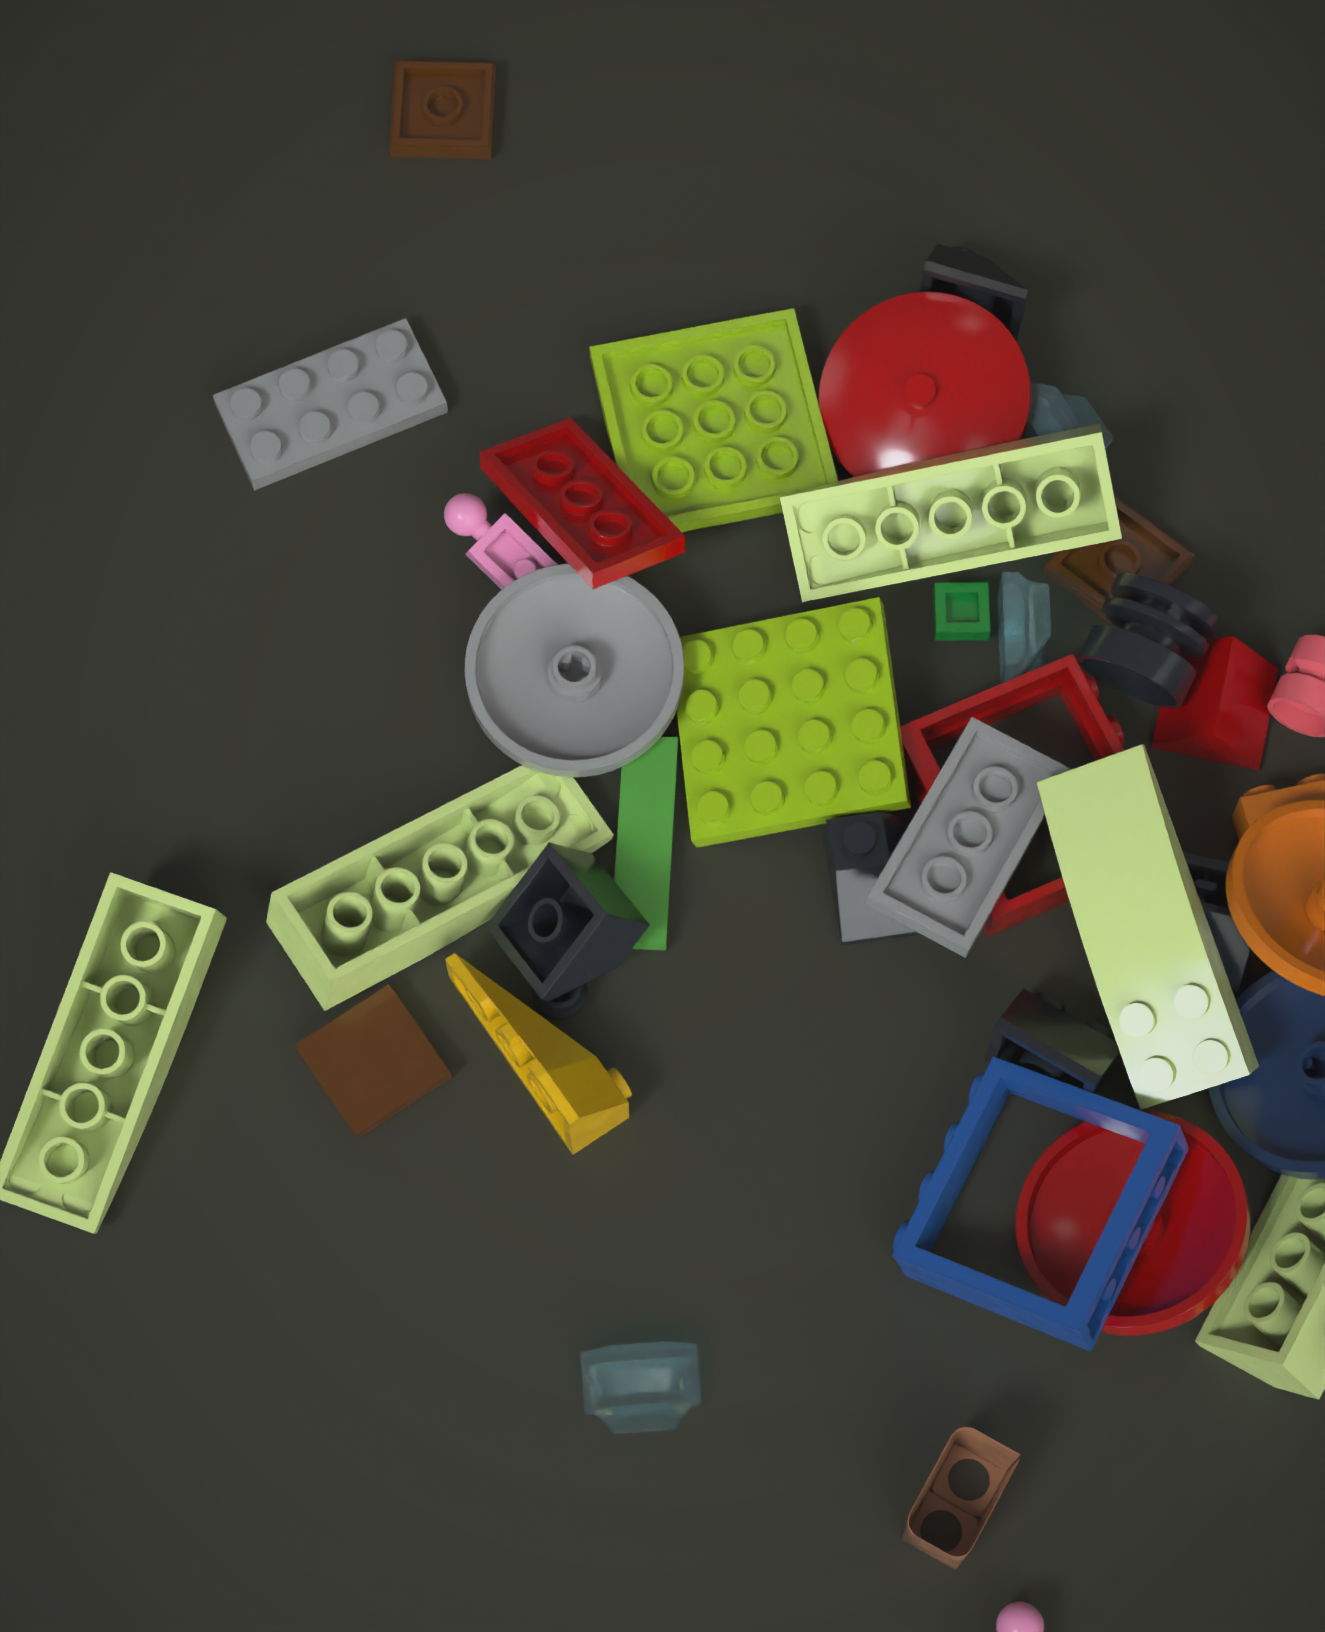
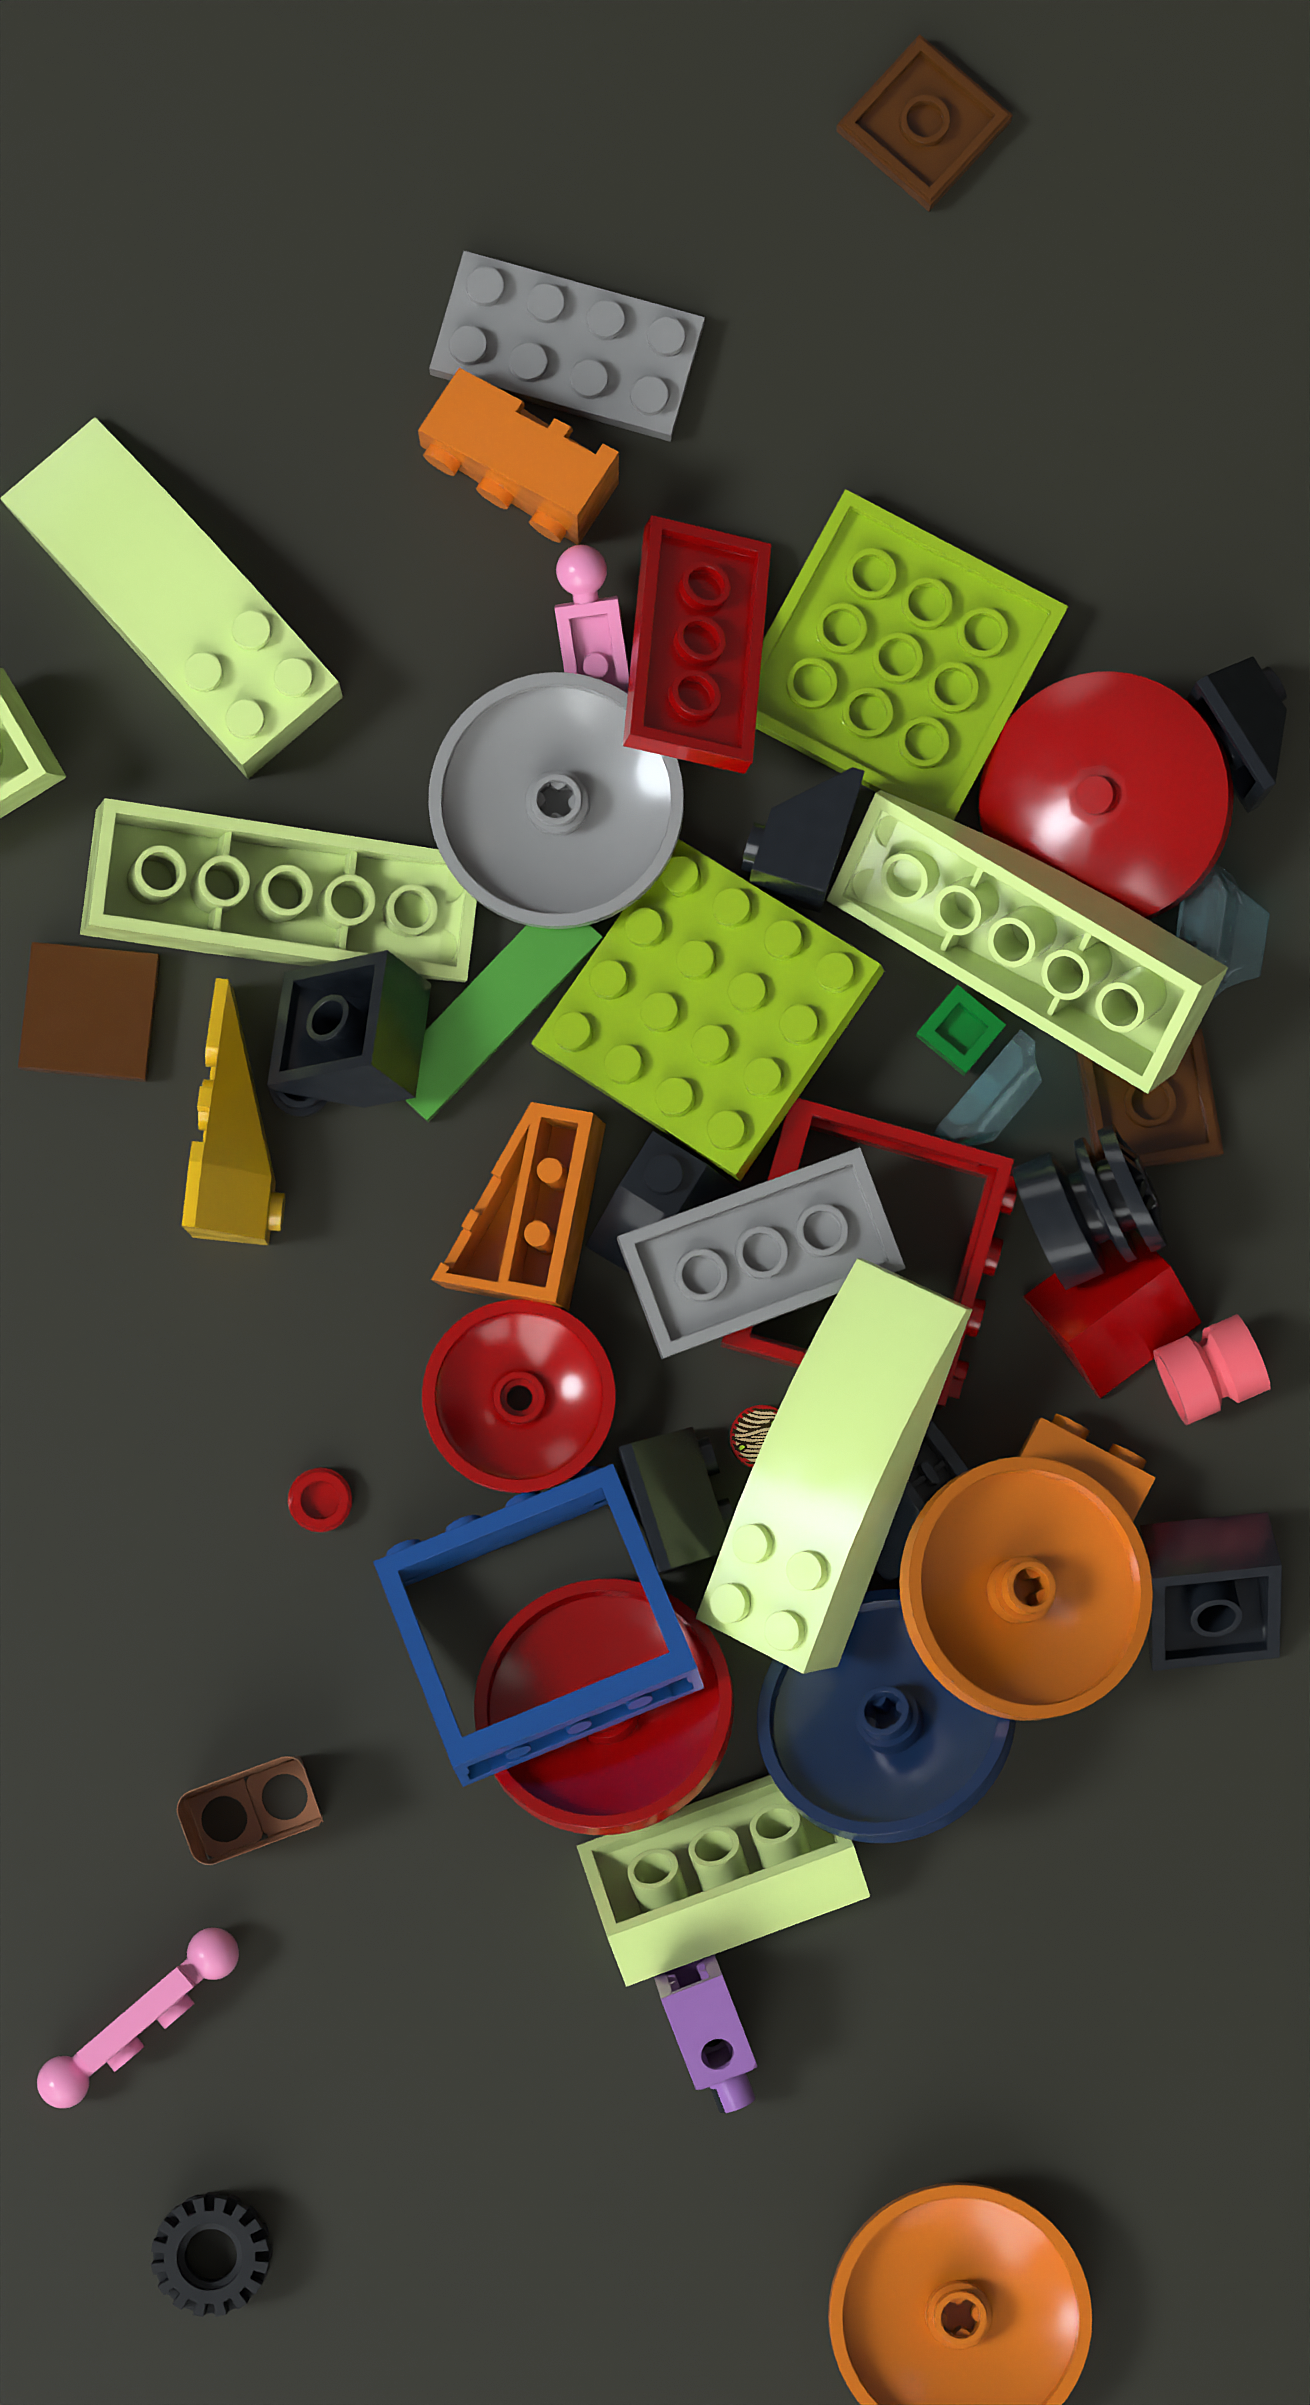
camera: 35 degrees right, 15 degrees up
(204, 748) = (174, 597): none -> yellowish green slope
(360, 485) = (518, 457): none -> orange wedge
(641, 1384) = (74, 1491): clear light blue slope -> none
(761, 565) = (802, 841): none -> black slope
(793, 945) = (532, 1214): none -> orange wedge
(814, 1255) = (320, 1499): none -> red tile
(895, 1030) = (510, 1348): none -> red dish
(1067, 970) = (750, 1432): none -> tile

